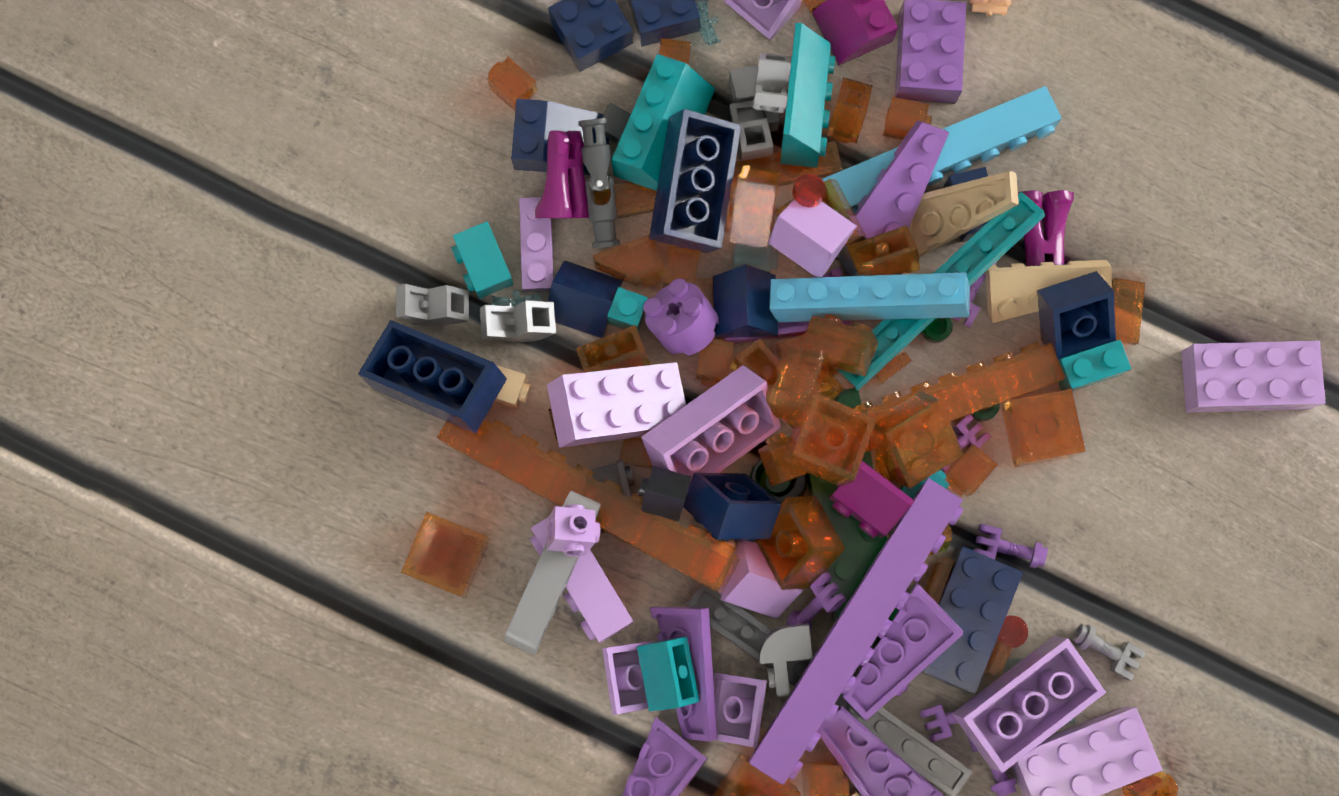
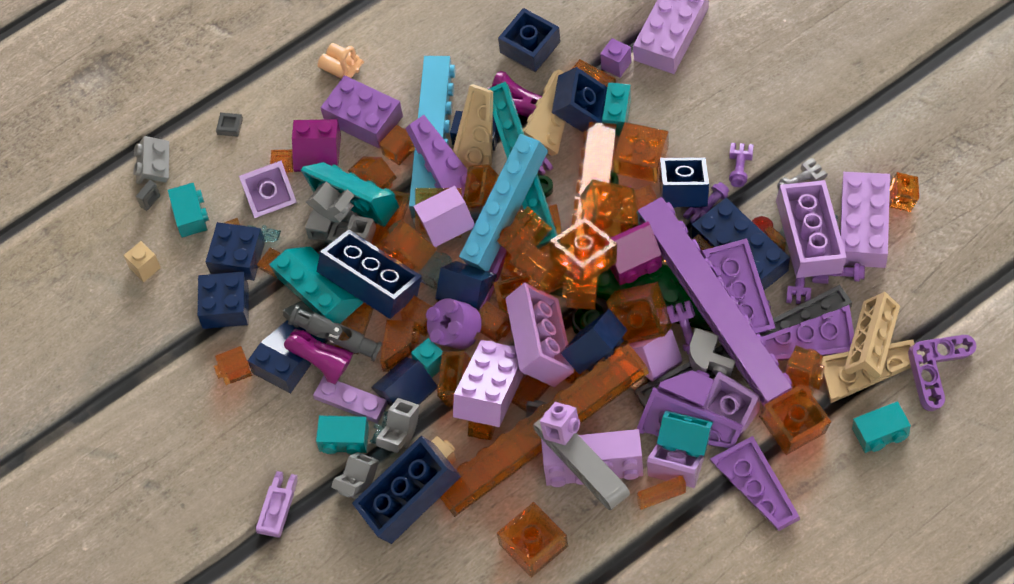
camera: 50 degrees left, 20 degrees down
(359, 231) = (276, 506): none -> lavender hinge
(582, 678) = (661, 492): none -> clear orange tile
(664, 493) = (565, 371): black brick -> none
(730, 650) = (689, 386): none -> medium lavender slope
(809, 190) = (416, 201): clear red tile -> none
(1021, 506) = (684, 182): none -> dark blue brick
(1068, 569) = (739, 177): none -> medium lavender hinge
(1138, 205) = (529, 39): none -> dark blue brick
(1168, 328) = (615, 57): none -> medium lavender brick

